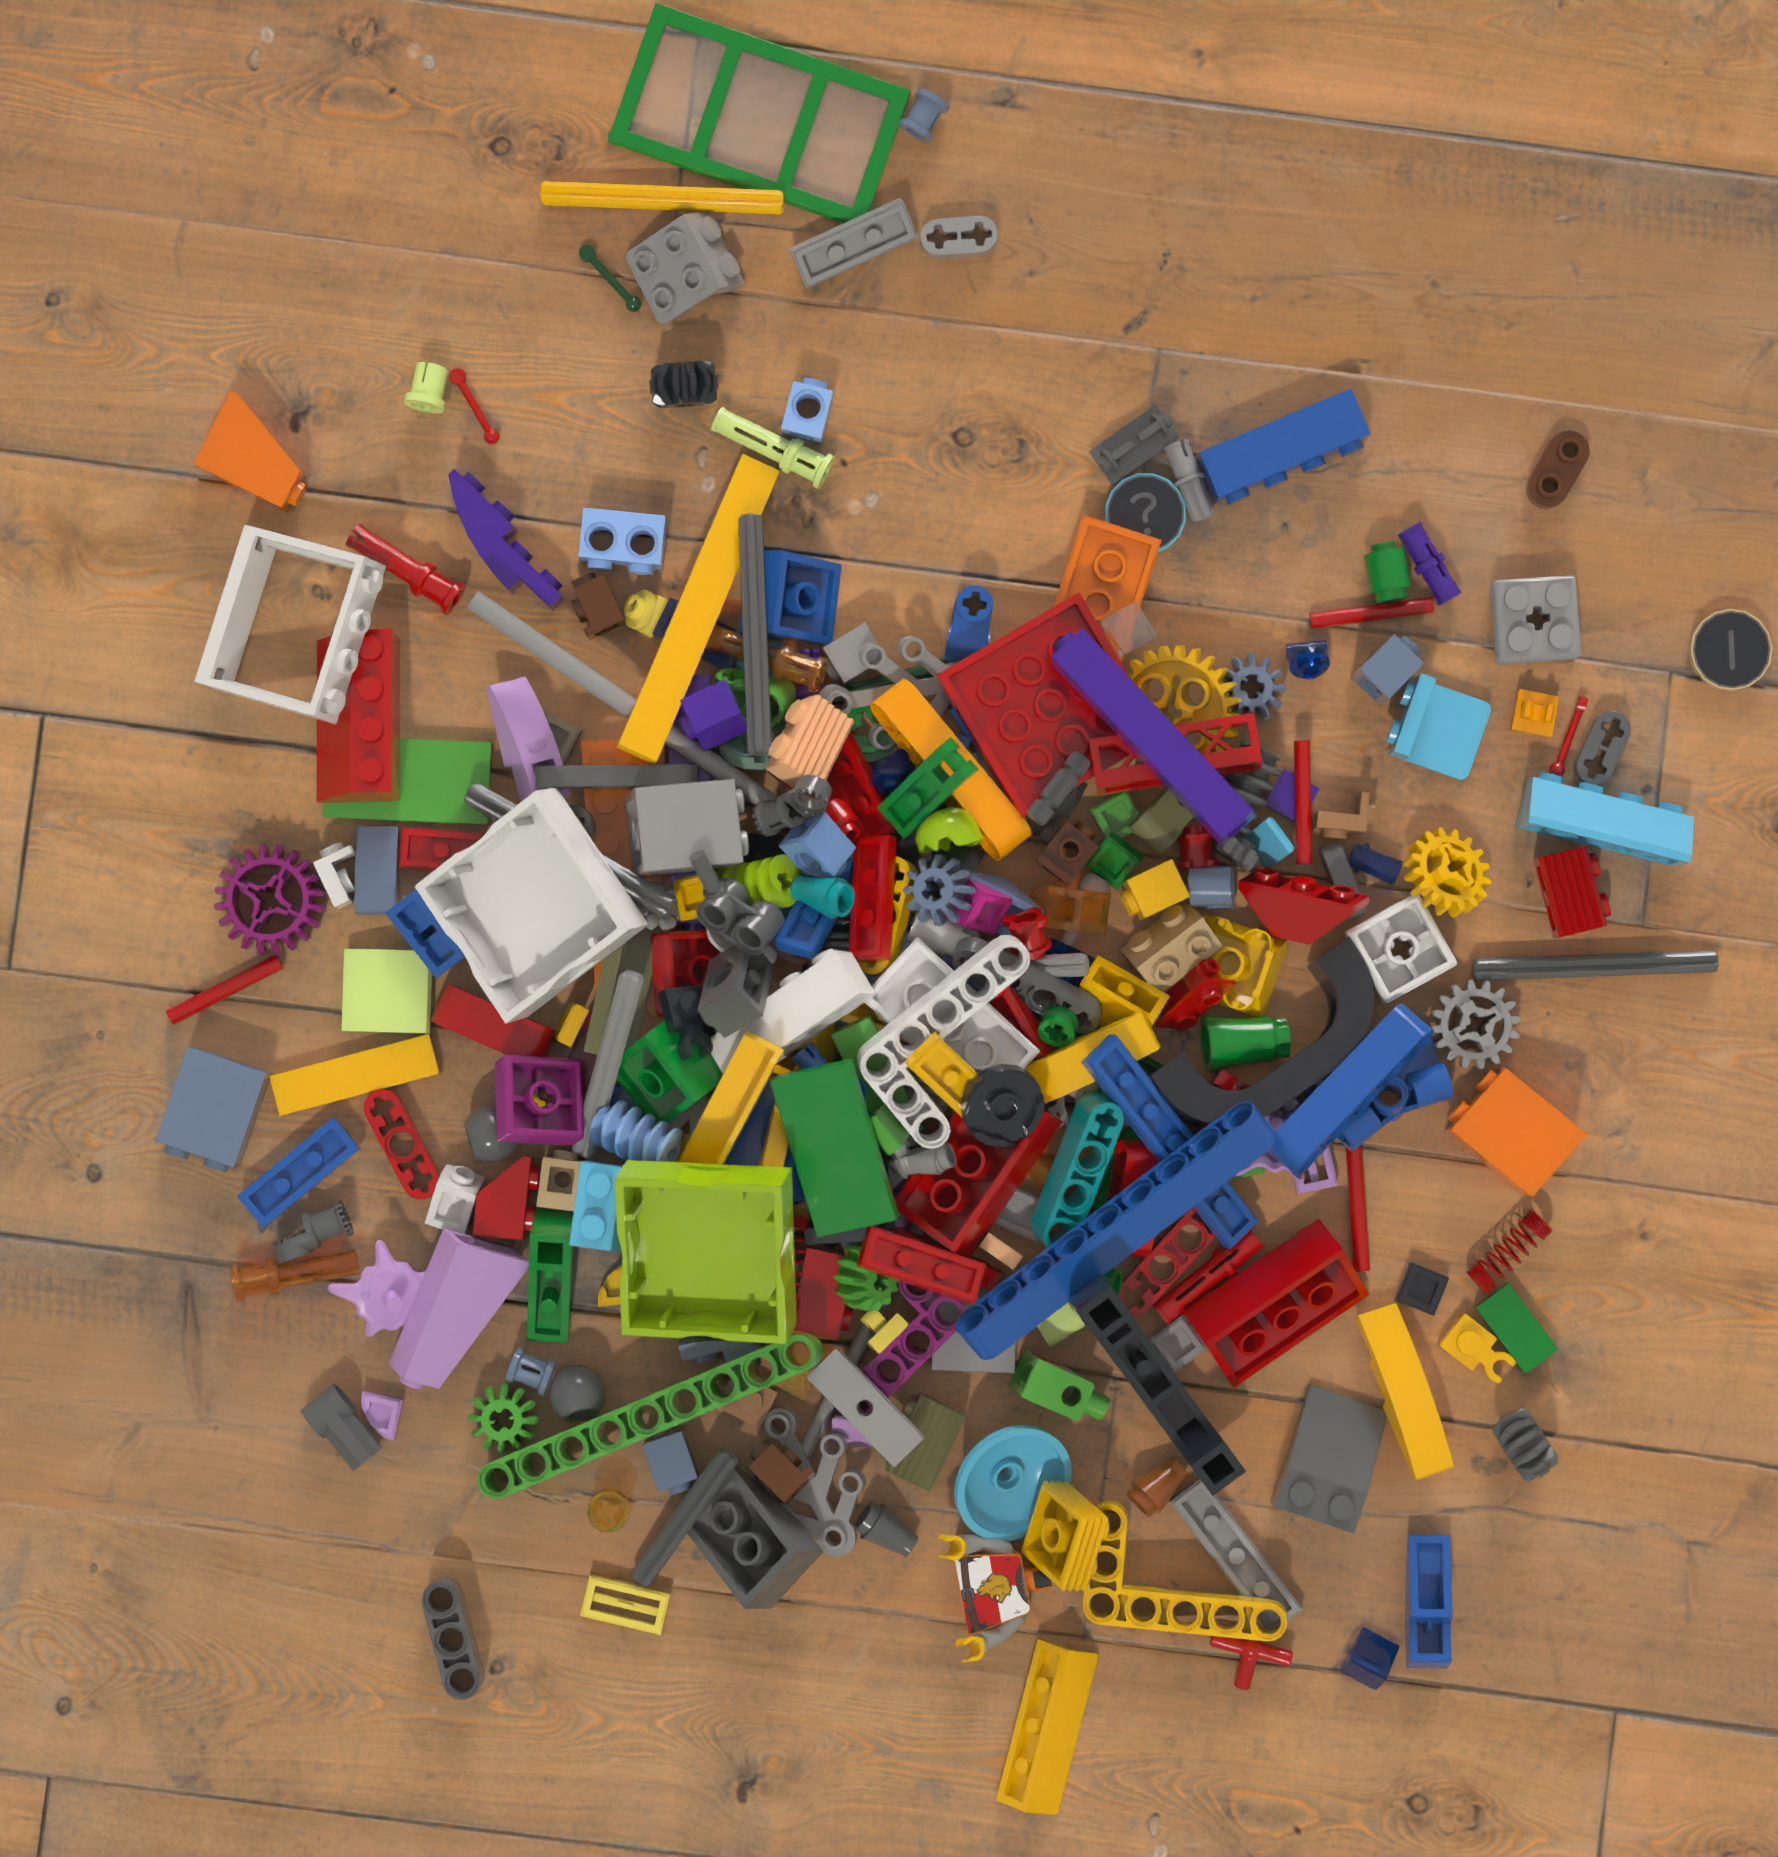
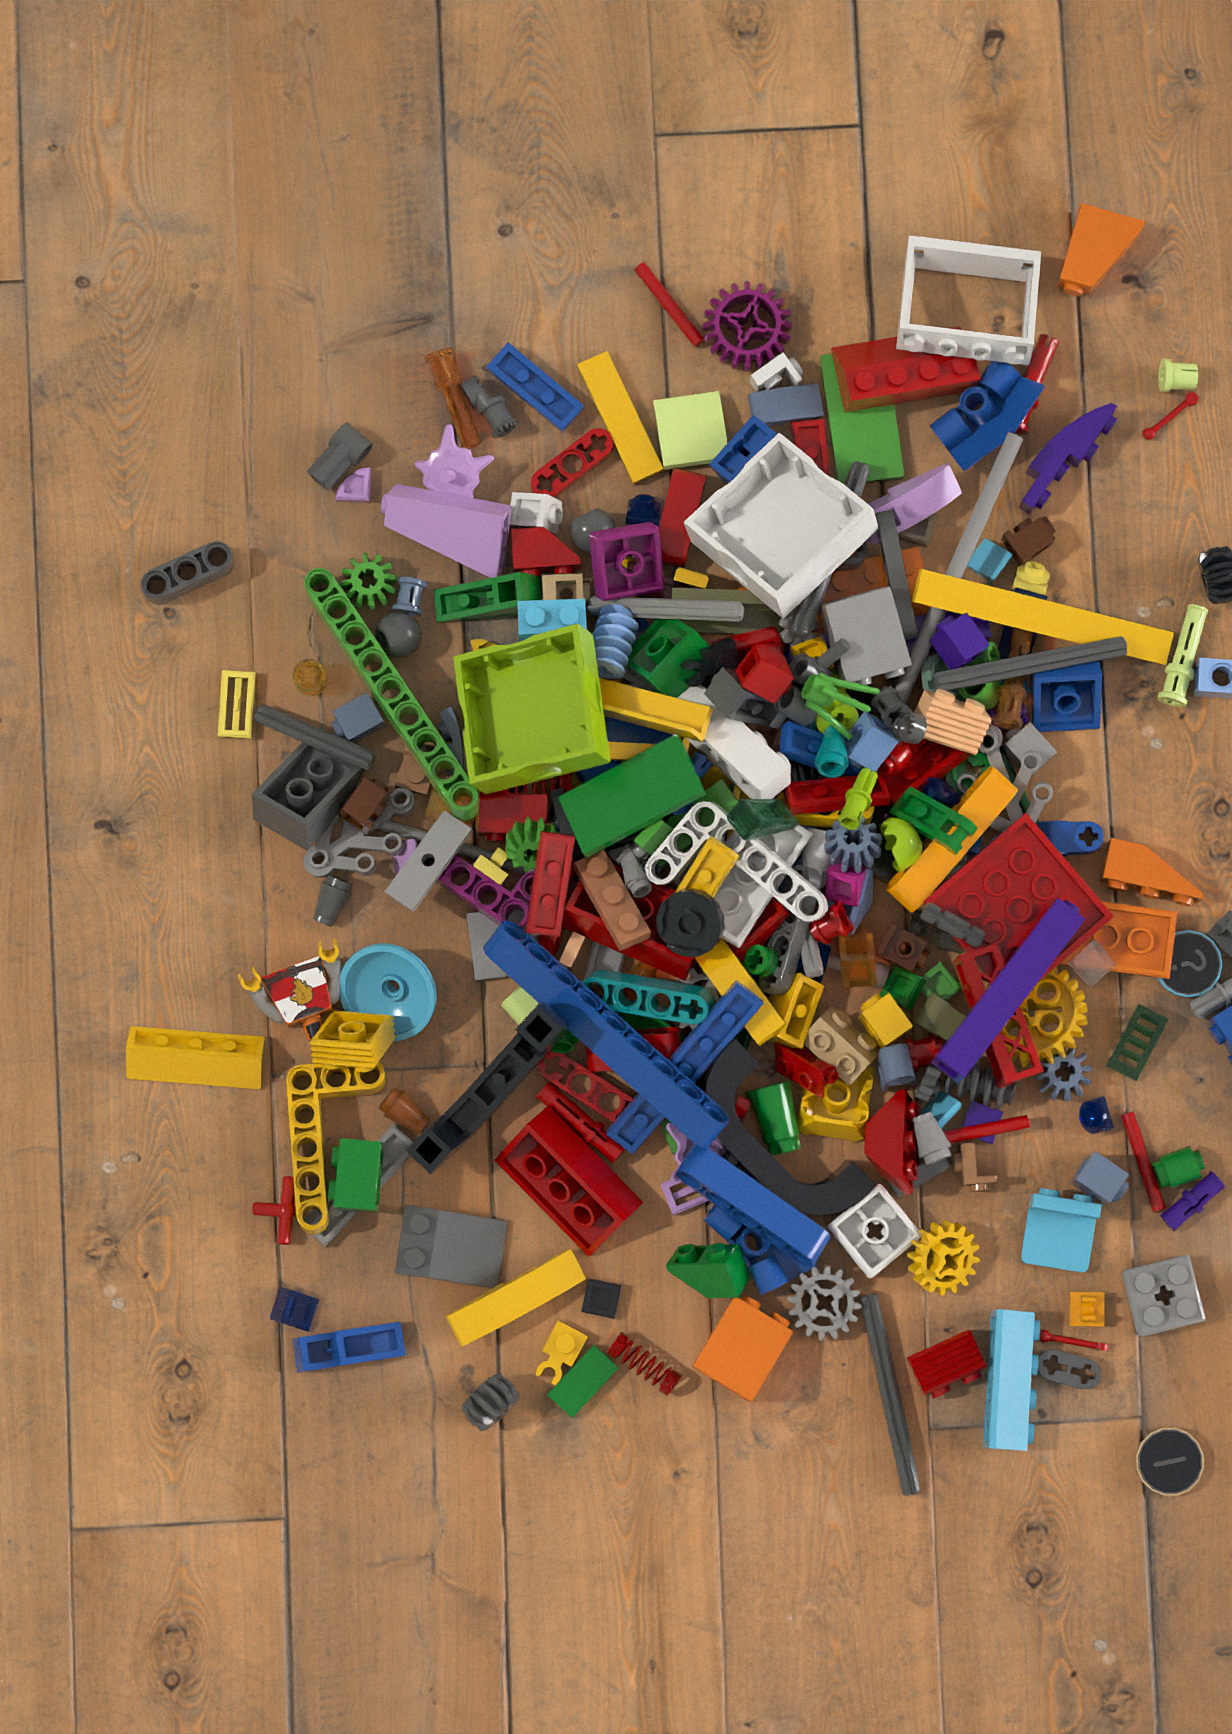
camera: 80 degrees right, 5 degrees down
(212, 1109) = (573, 311): sand blue brick -> none
(427, 602) = (976, 433): none -> blue panel
(476, 1067) = (642, 510): none -> clear blue plate
(613, 658) = (989, 560): none -> medium azure slope
(624, 528) = (1094, 550): light blue brick -> none
(712, 958) = (765, 672): none -> red slope
(750, 896) = (820, 691): none -> bright green plant
(887, 874) = (858, 799): none -> lime axle
(893, 1002) = (761, 818): none -> clear green slope
(940, 1427) = (397, 921): olive brick -> none
(955, 1193) = (612, 900): none -> nougat plate
(1020, 550) = (1140, 868): none -> orange slope
(1044, 1382) = (471, 1000): bright green torso -> none
(1177, 1343) = (521, 1107): light grey tile -> none
(1194, 585) = (1150, 1016): none -> clear green slope
(1231, 1558) = (358, 1175): none -> green brick
(1307, 861) = (931, 1140): none -> light grey cone
(1357, 1207) = (656, 1235): red bar -> none
(1374, 863) = (939, 1198): clear blue pin -> none
(1413, 1152) = (711, 1269): none -> green slope

